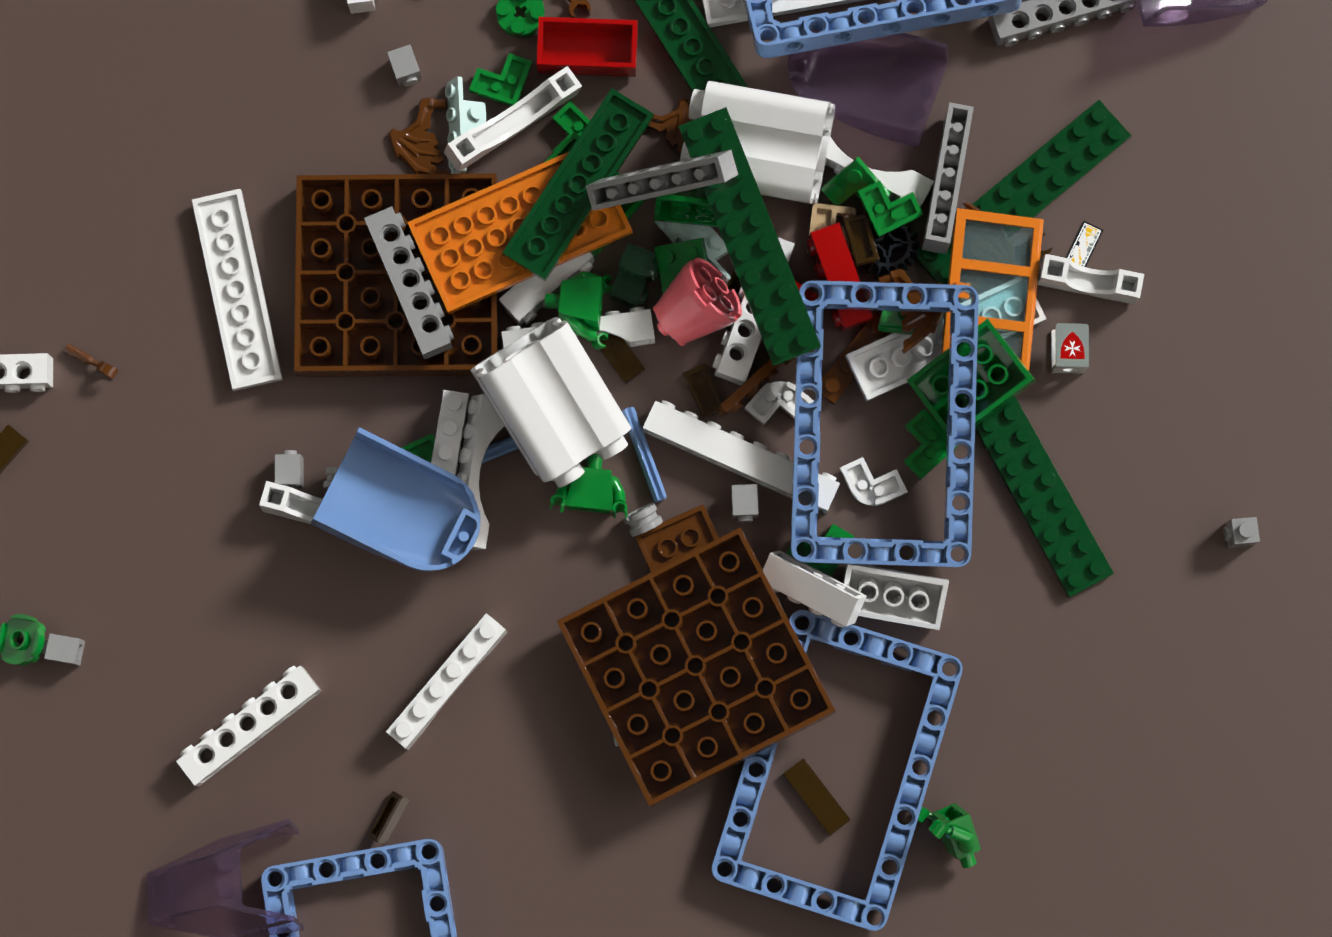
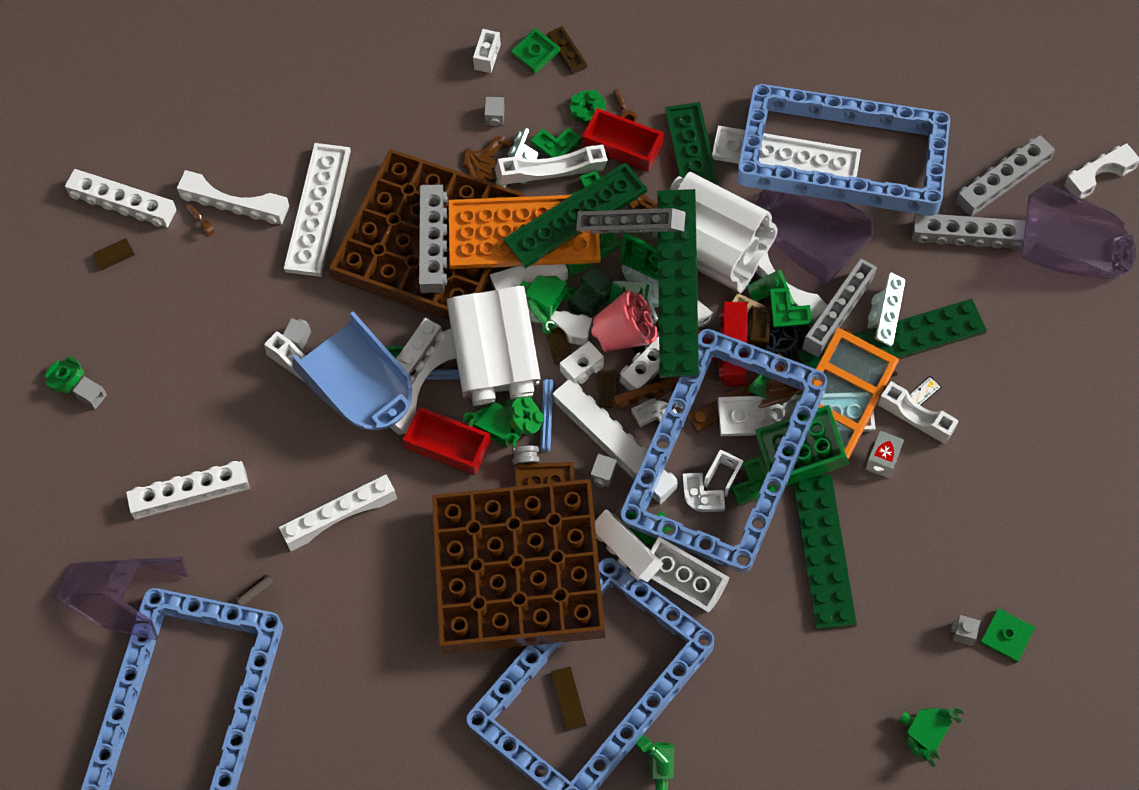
camera: 25 degrees right, 15 degrees down
(172, 312) = (265, 207): none -> white arch
(540, 539) = (447, 441): none -> red piece
(632, 468) = (533, 419): none -> green plate
(661, 357) = (586, 354): none -> white brick
(889, 429) = (722, 458): none -> white piece
(1002, 156) = (886, 309): none -> light aqua bracket
(1242, 671) = (928, 730): none -> green torso
(1289, 517) = (1007, 635): none -> green plate

